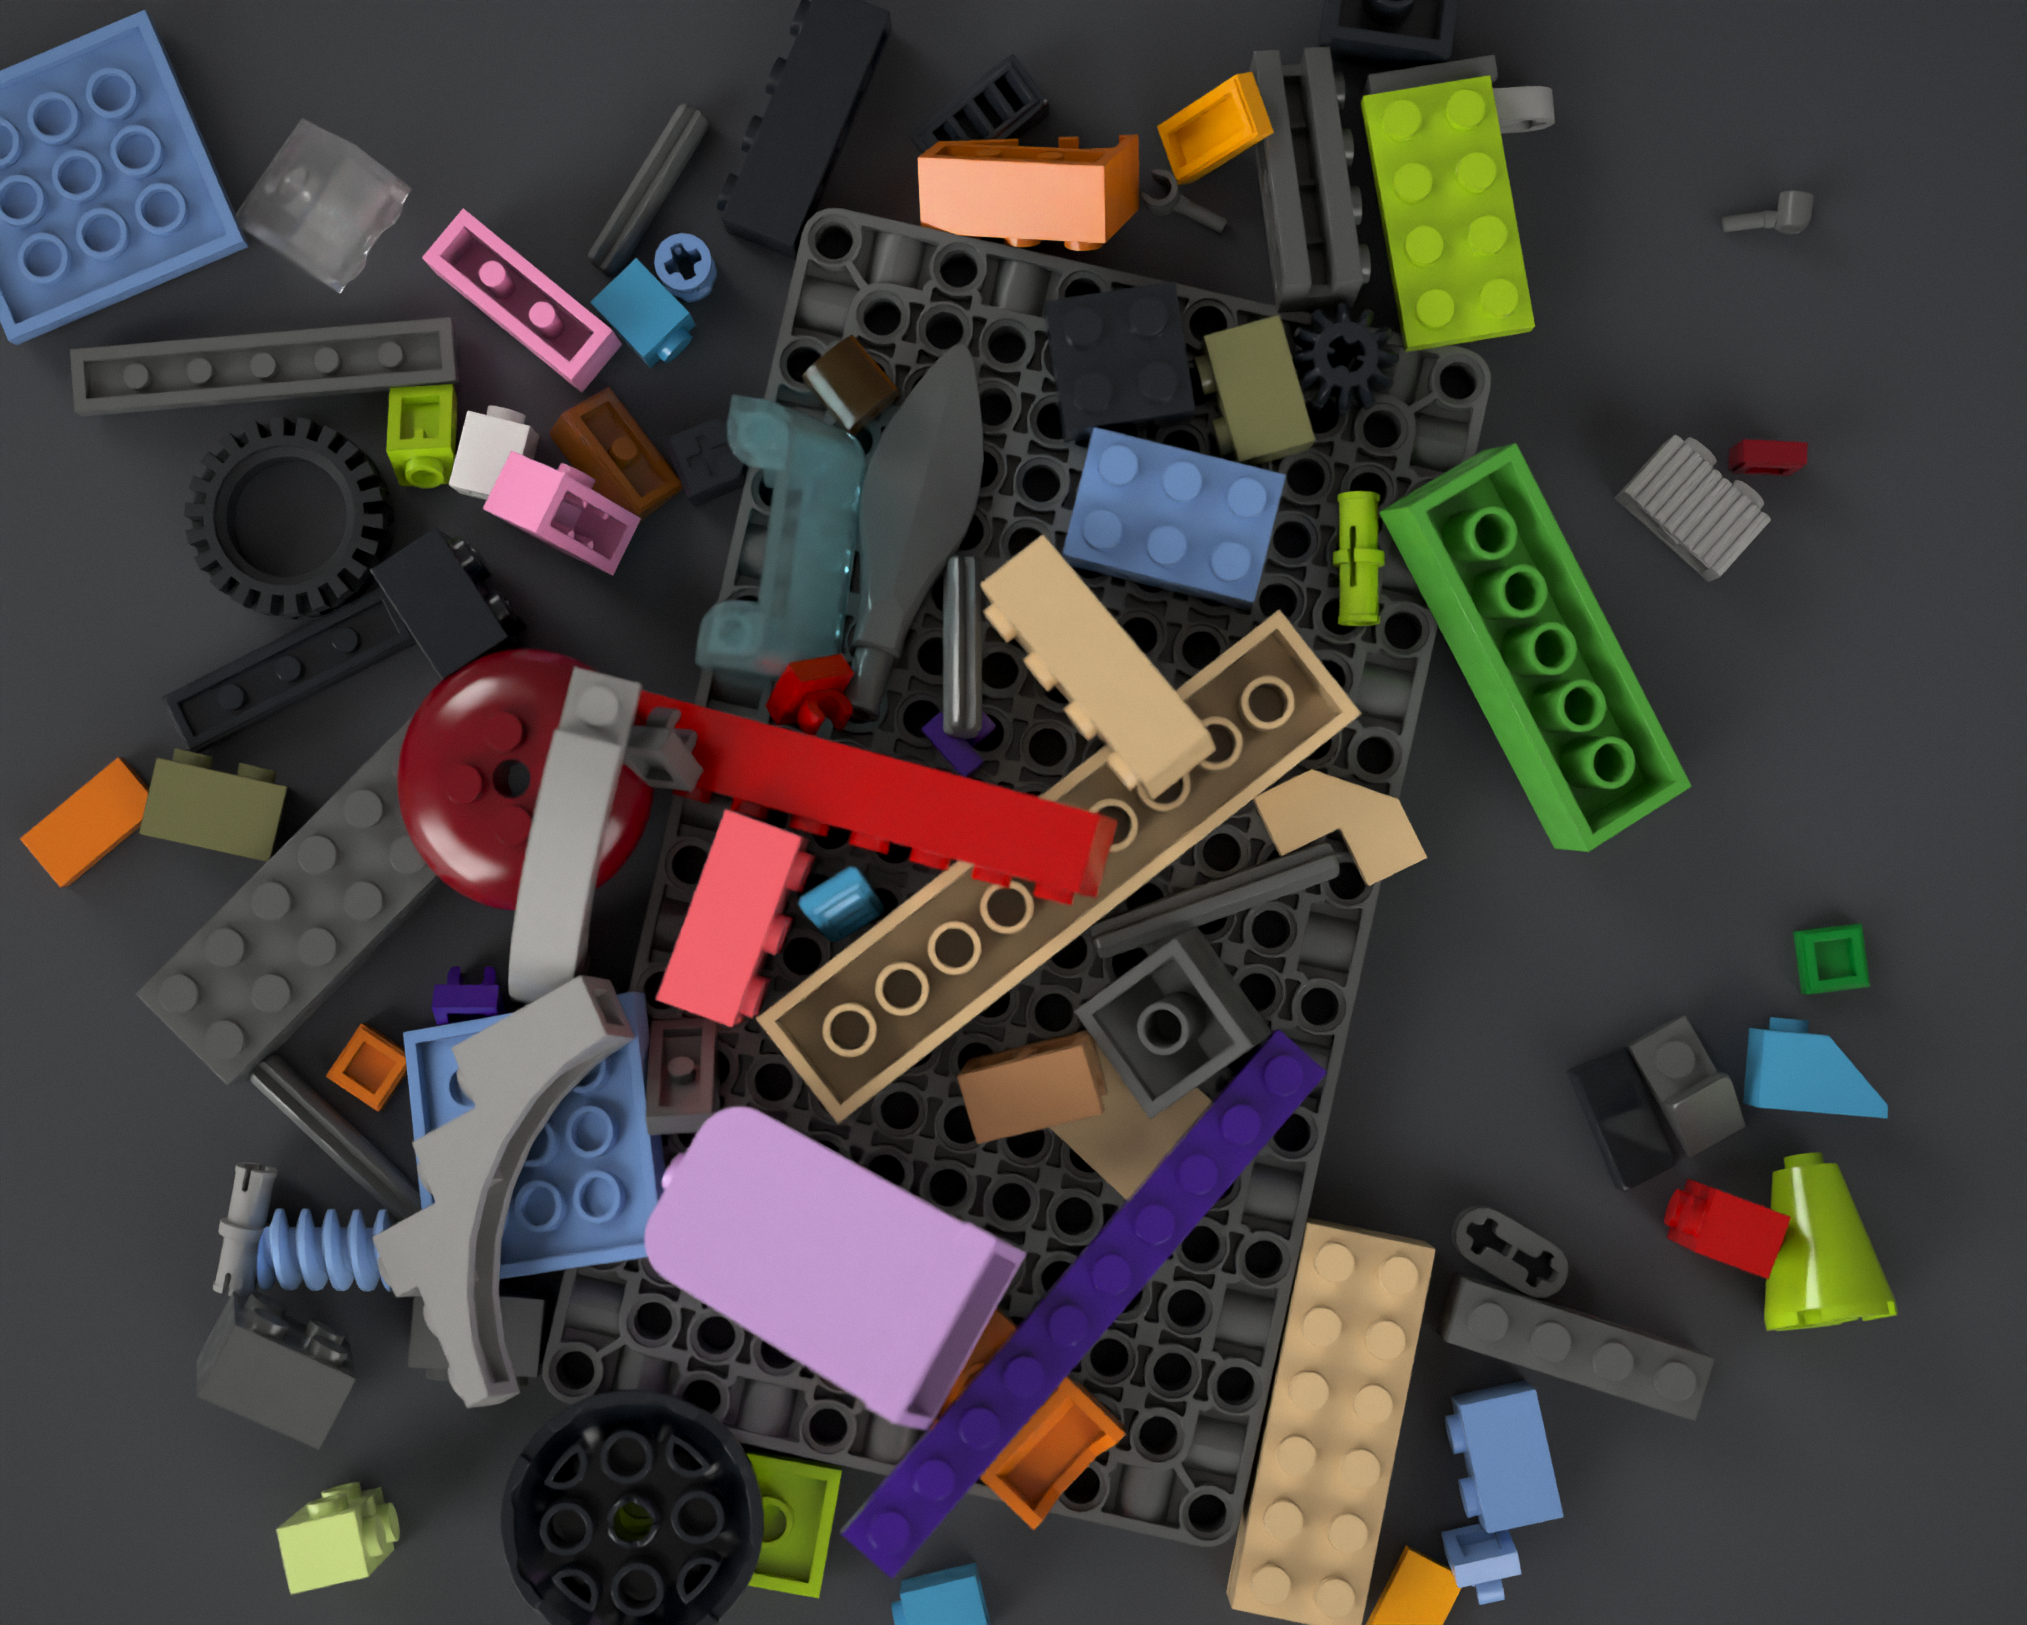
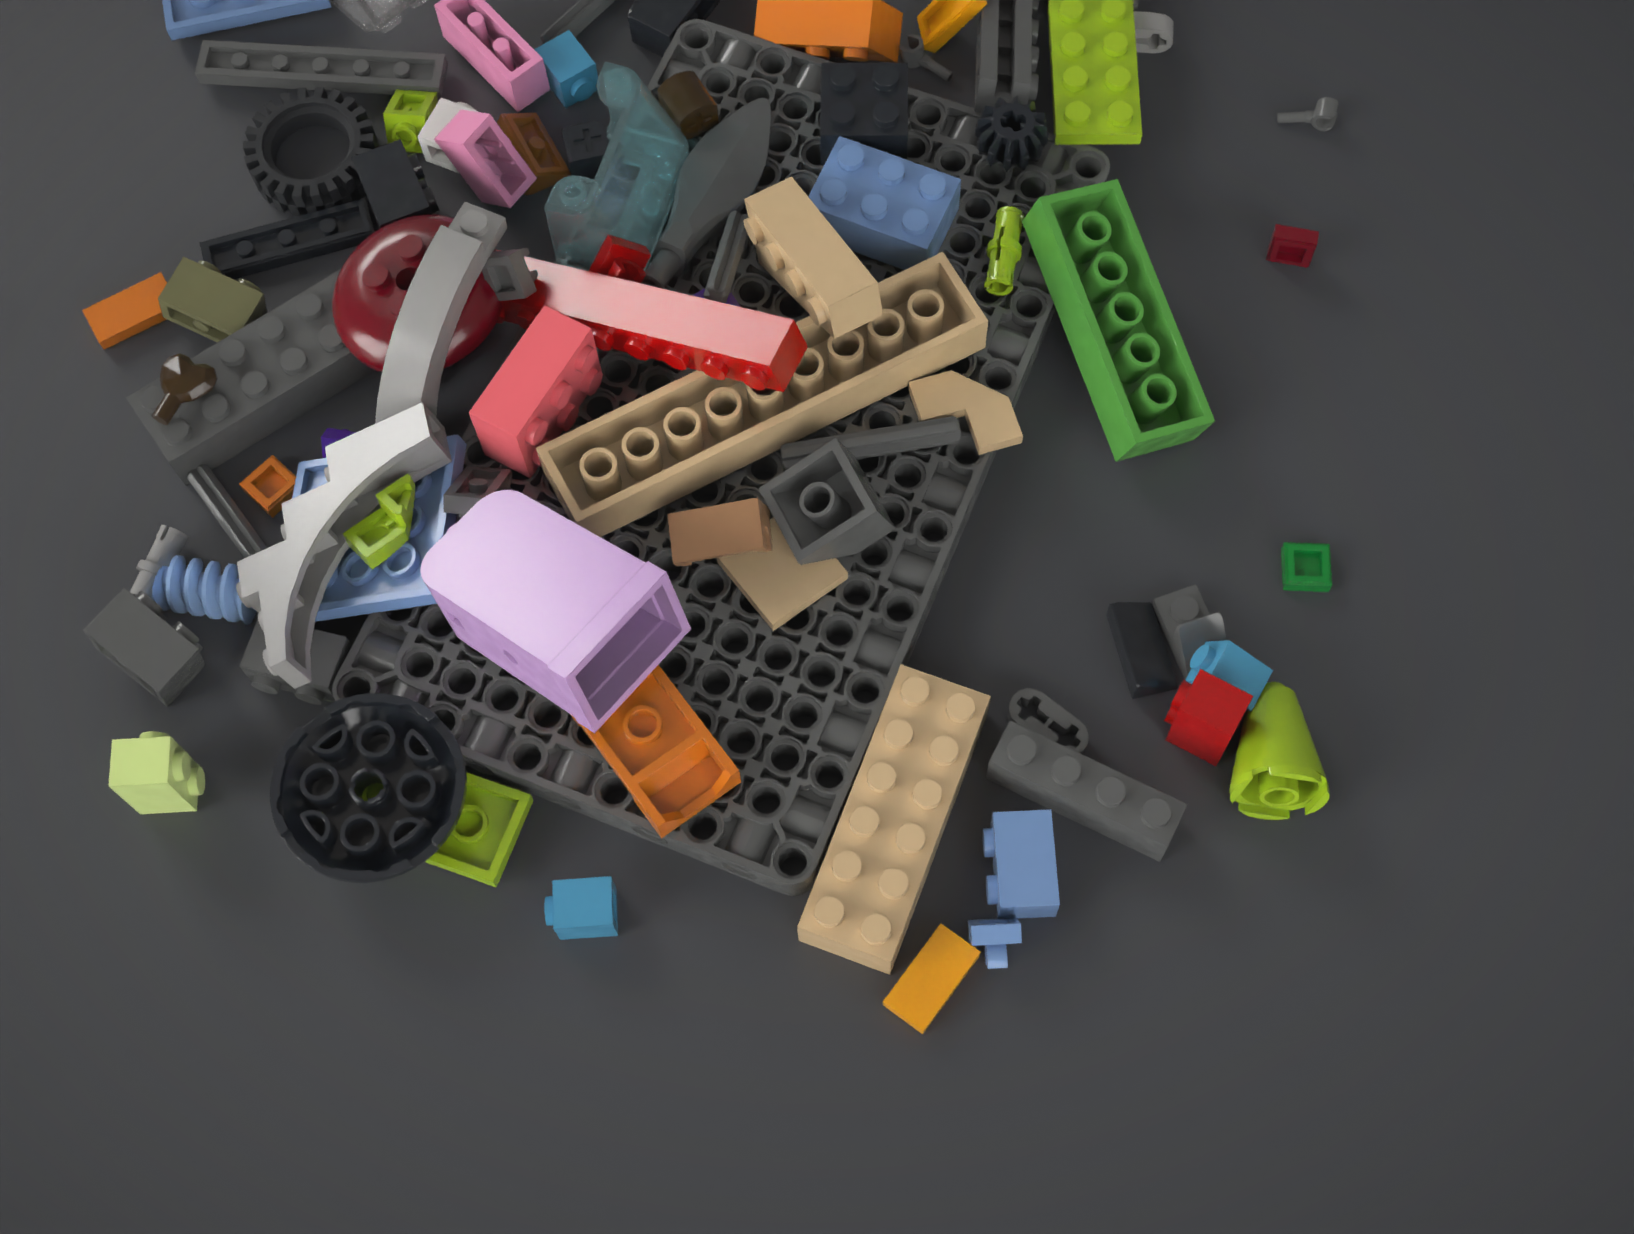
camera: 15 degrees right, 20 degrees down
(217, 974) = (182, 383): none -> dark brown rock
(567, 1151) = (388, 527): none -> lime slope
(667, 269) = (607, 43): medium blue bush -> none
(842, 904) = (611, 392): dark azure slope -> none
(1082, 1304) = (719, 678): dark purple plate -> none
(1254, 393) = (951, 139): olive brick -> none
(1694, 506) = (1238, 268): light grey brick -> none
(1747, 1159) = (1231, 665): none -> dark azure brick
(1805, 1073) = (1282, 634): dark azure slope -> none

